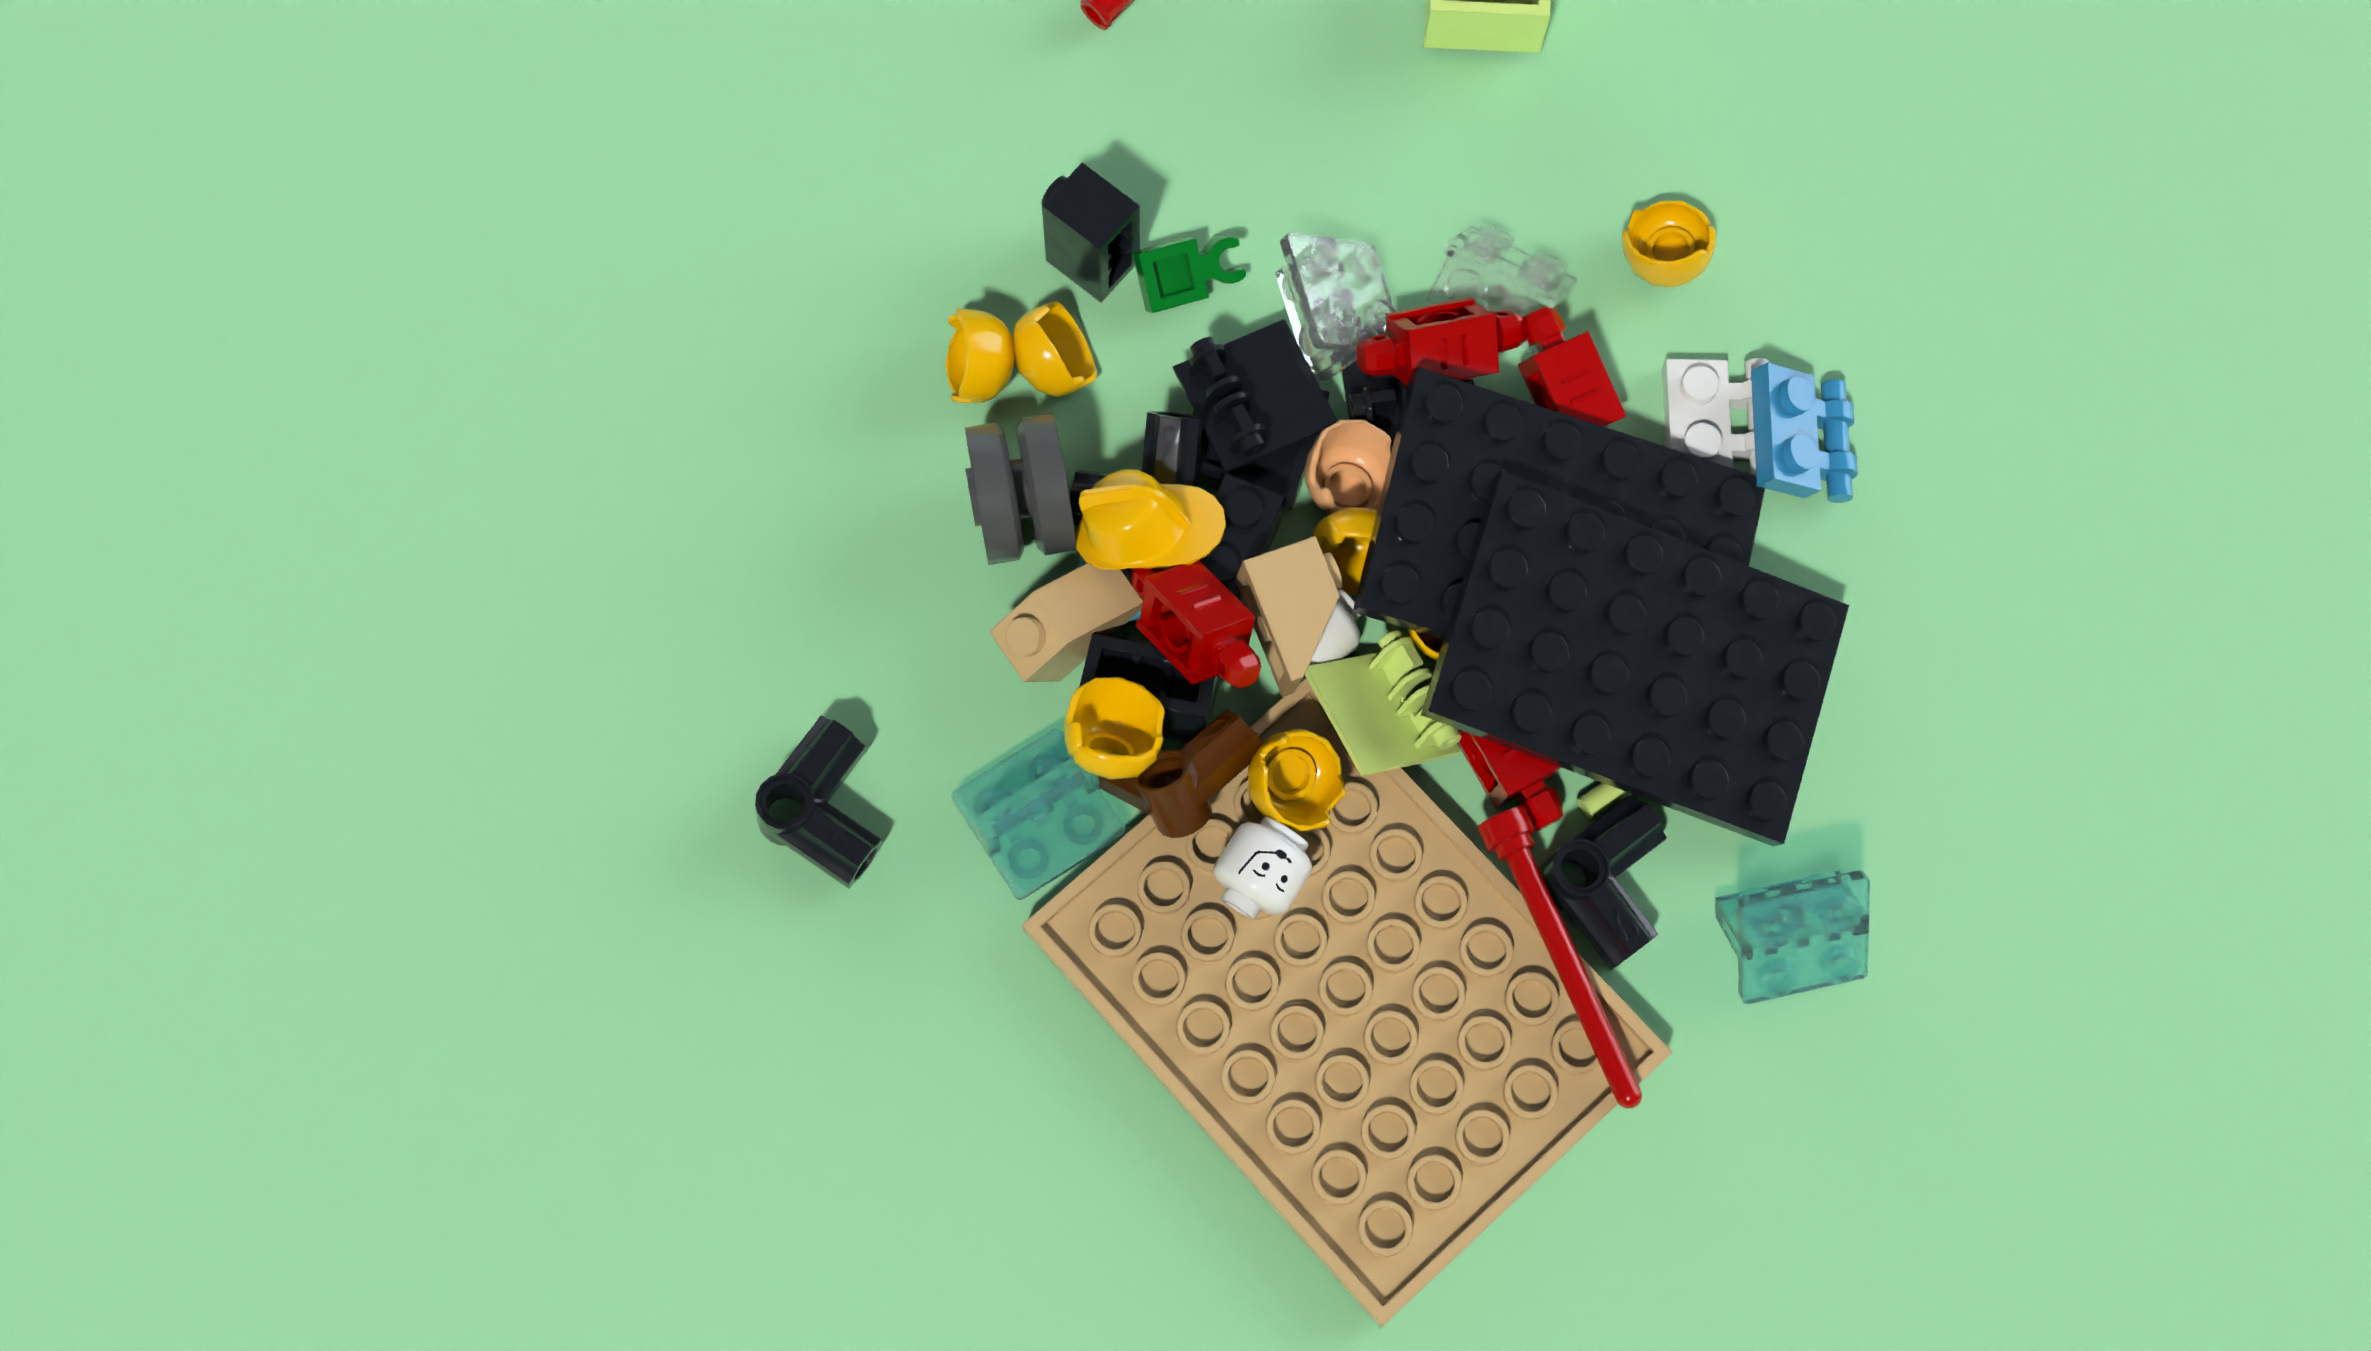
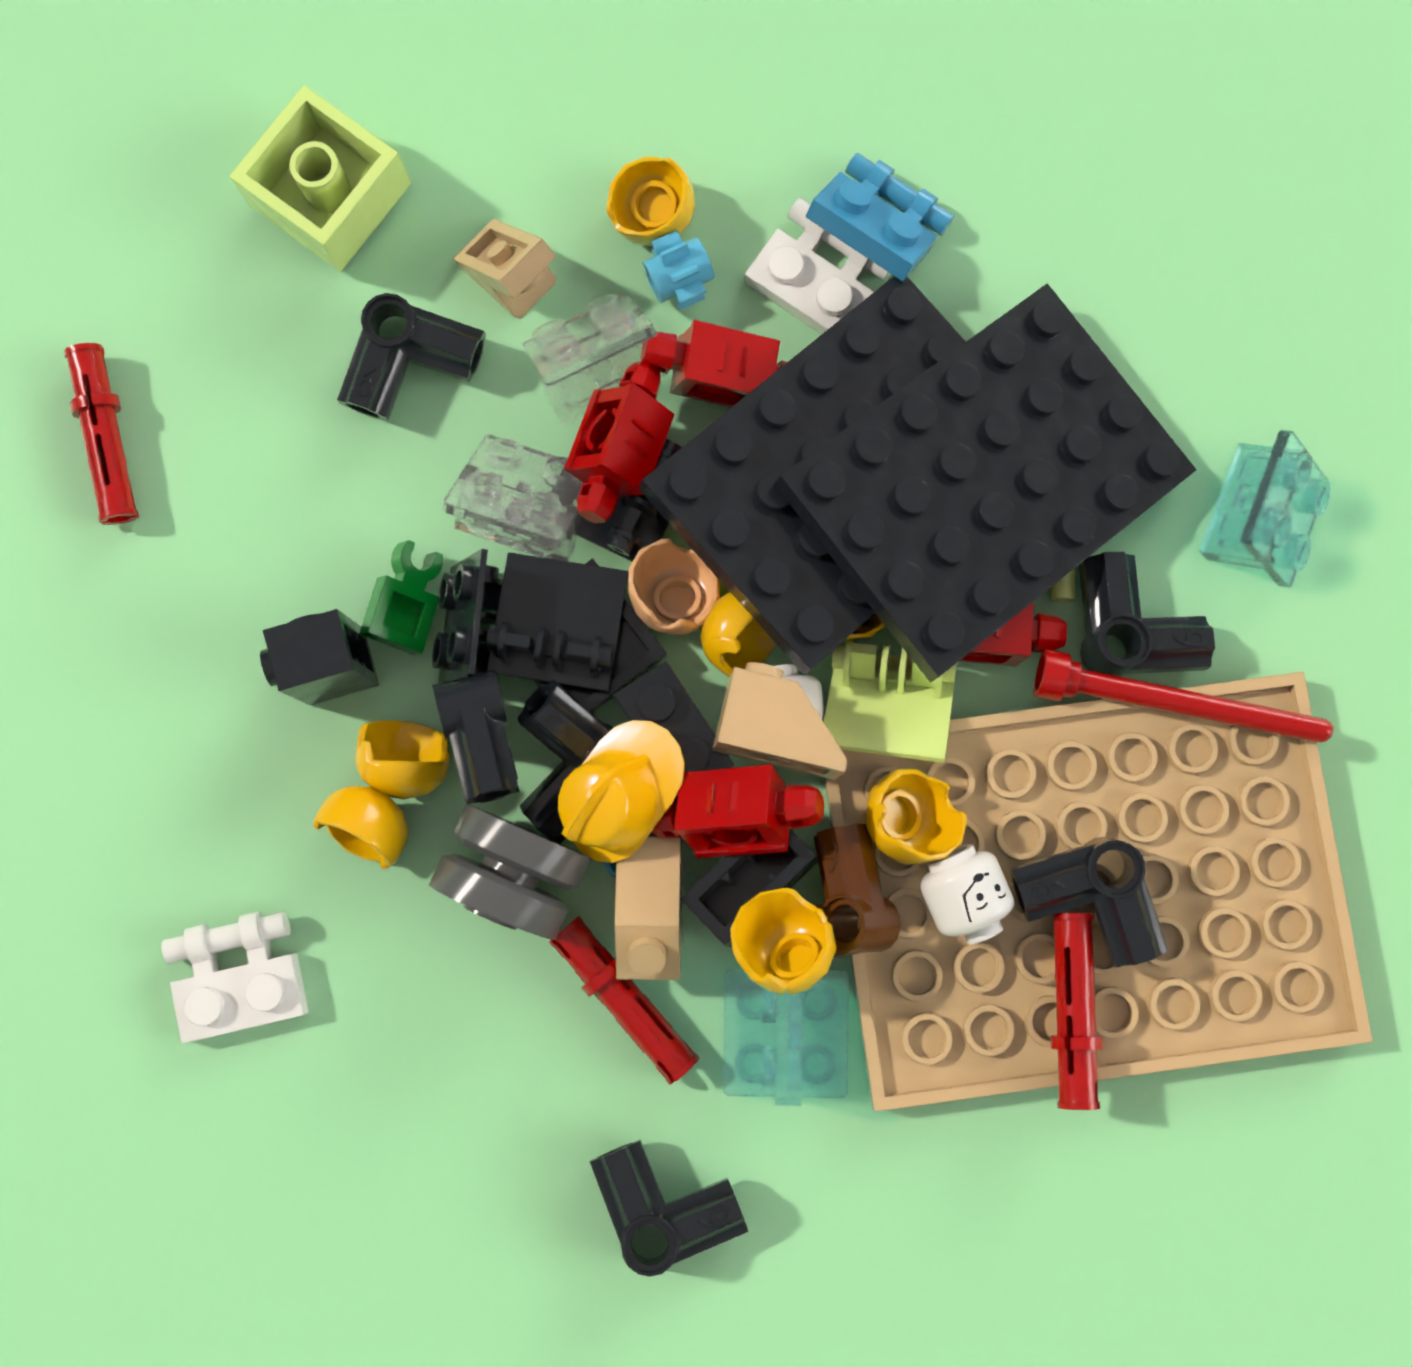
camera: 50 degrees left, 10 degrees up
(770, 360) = (238, 996): none -> white plate
(973, 661) = (624, 1001): none -> red pin
(1115, 386) = (475, 722): none -> black piece
(1215, 1039) = (1076, 1012): none -> red pin
(1224, 308) = (463, 594): none -> black hinge
(1343, 1010) = (1121, 907): none -> black piece
(1415, 144) = (381, 363): none -> black piece
(1527, 172) = (509, 266): none -> tan slope
(1626, 301) = (678, 270): none -> medium azure gear

